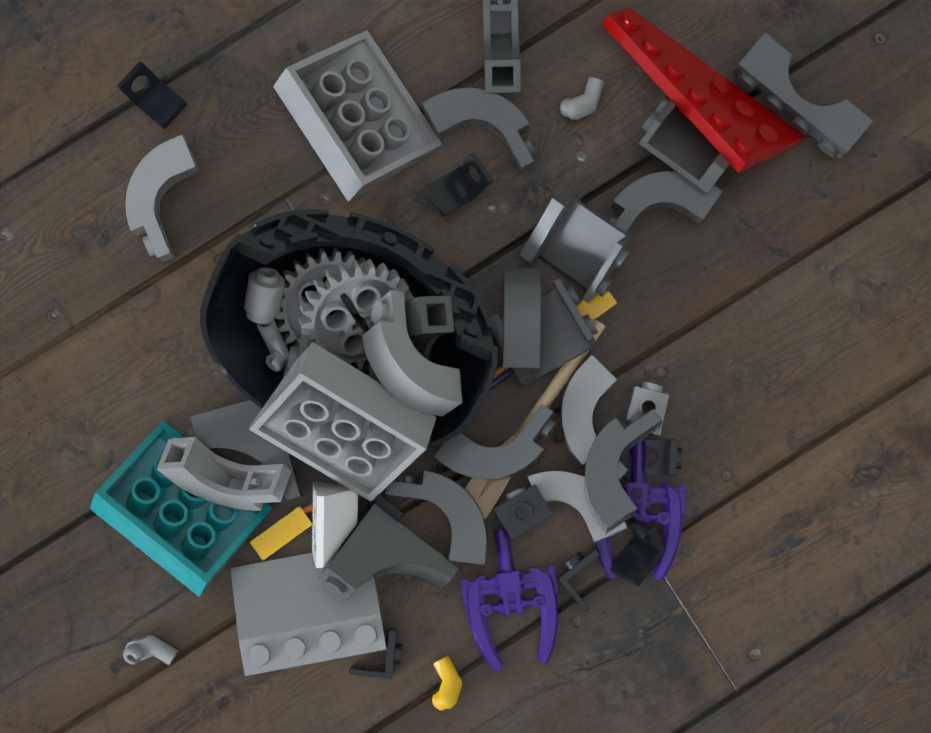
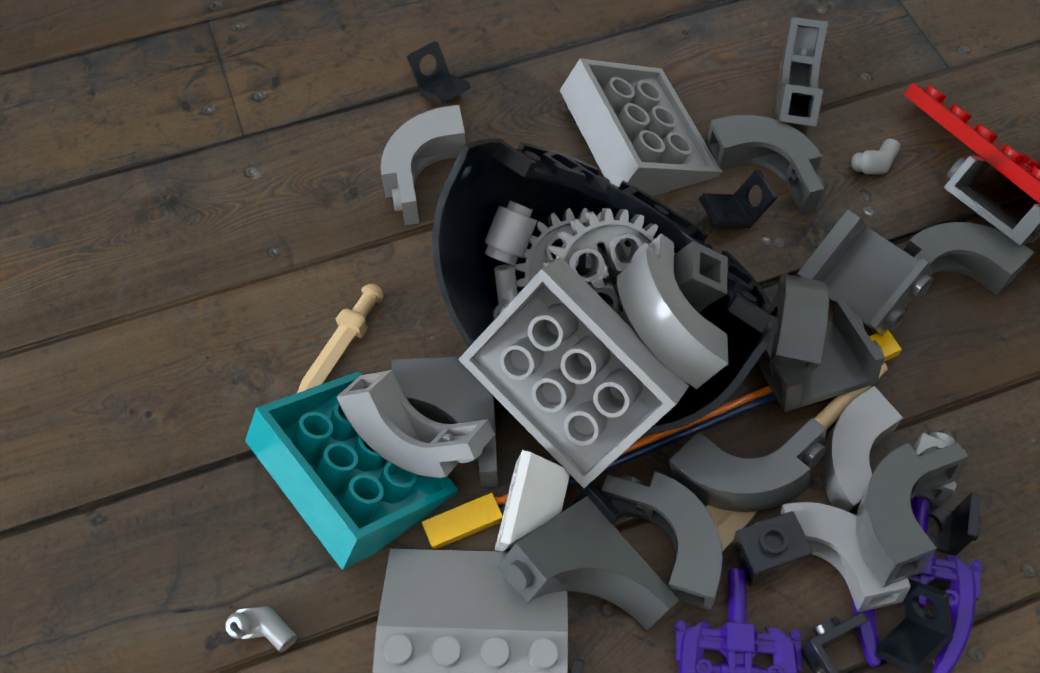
camera: 15 degrees right, 25 degrees down
(143, 380) = (350, 324): none -> tan sword

